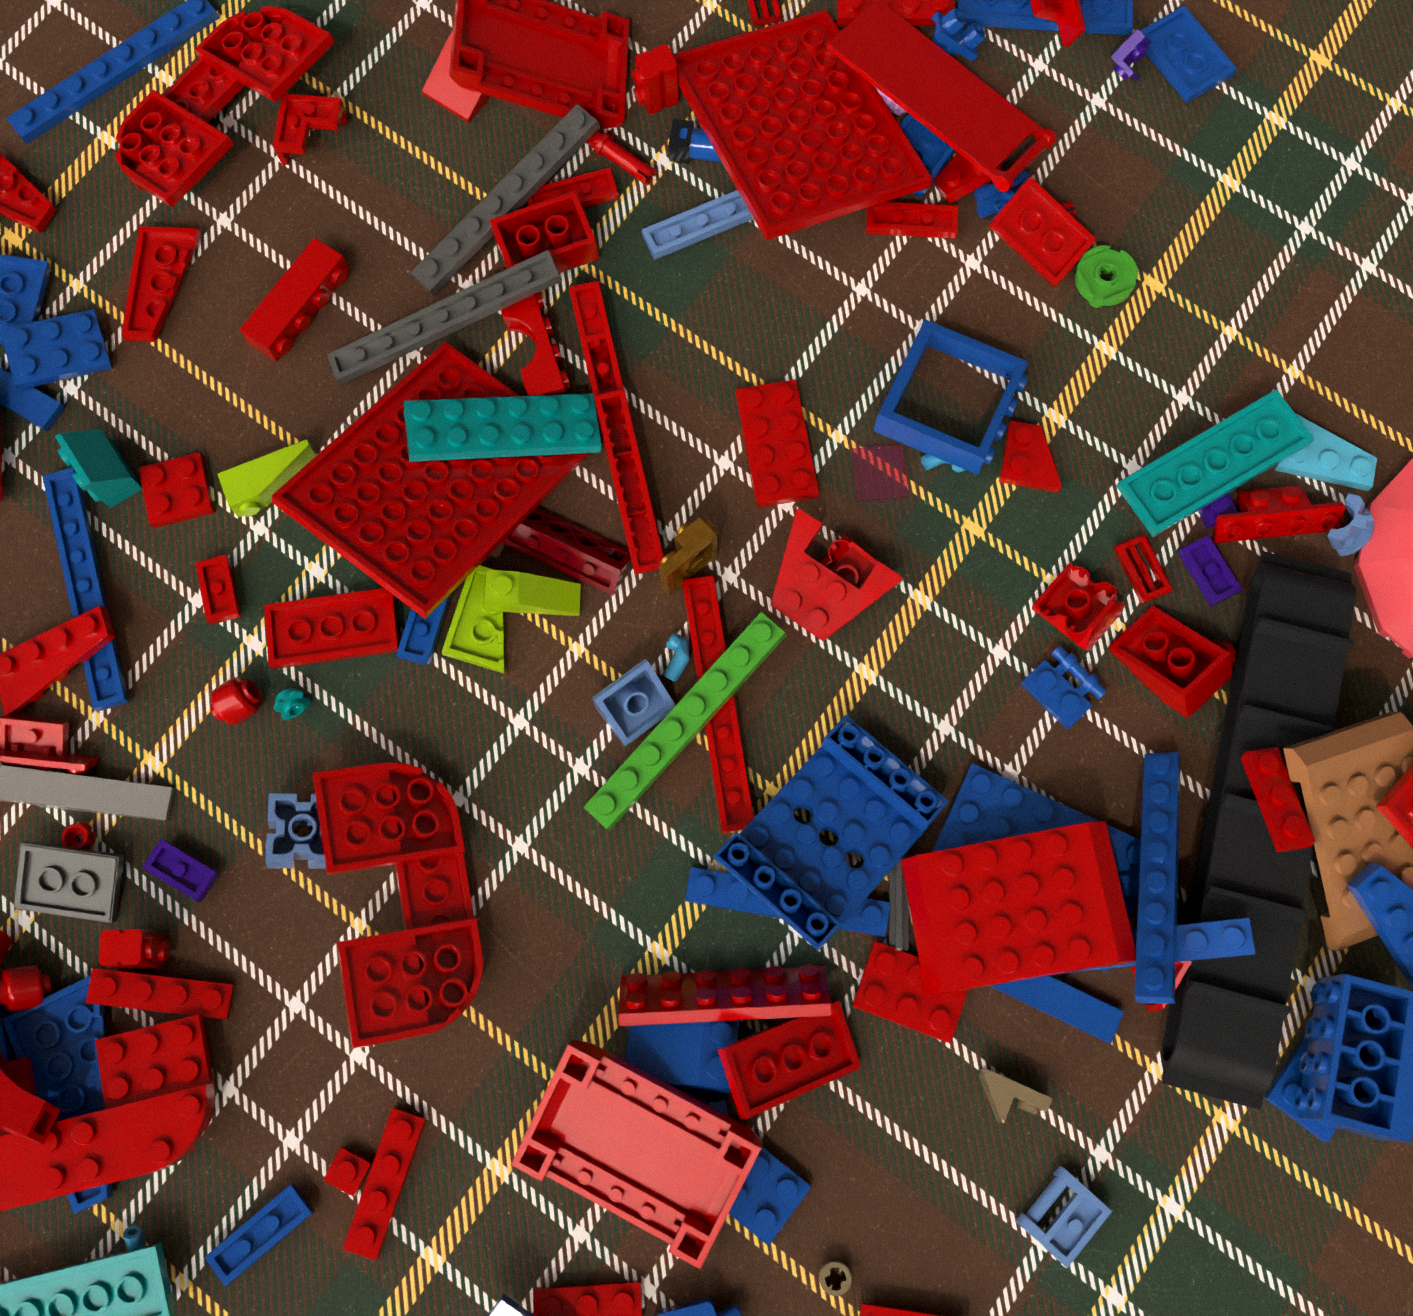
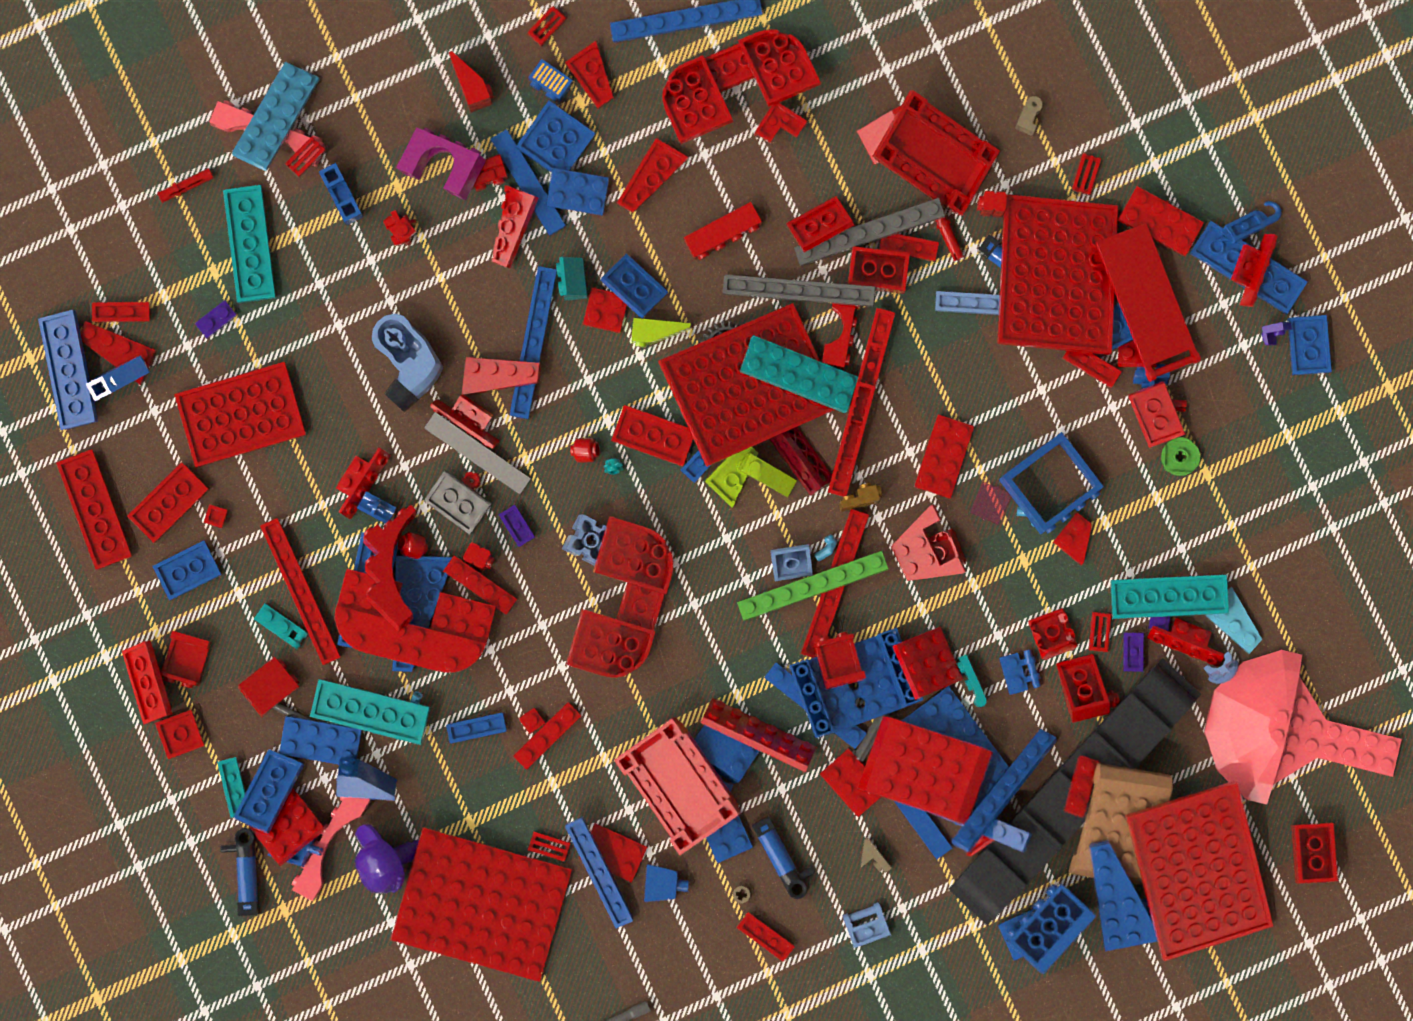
camera: 25 degrees right, 10 degrees up
(199, 433) = (634, 286): none -> blue plate
(218, 589) = (603, 381): red plate -> none
(430, 222) = (820, 224): none -> red plate
(786, 810) = (838, 660): none -> red panel
(788, 1060) = (774, 782): red plate -> none
(868, 1180) = (780, 857): none -> piece
(922, 743) = (927, 662): none -> red plate
(954, 38) = (1181, 266): blue hips -> none
(1003, 736) = (972, 681): none -> teal plate

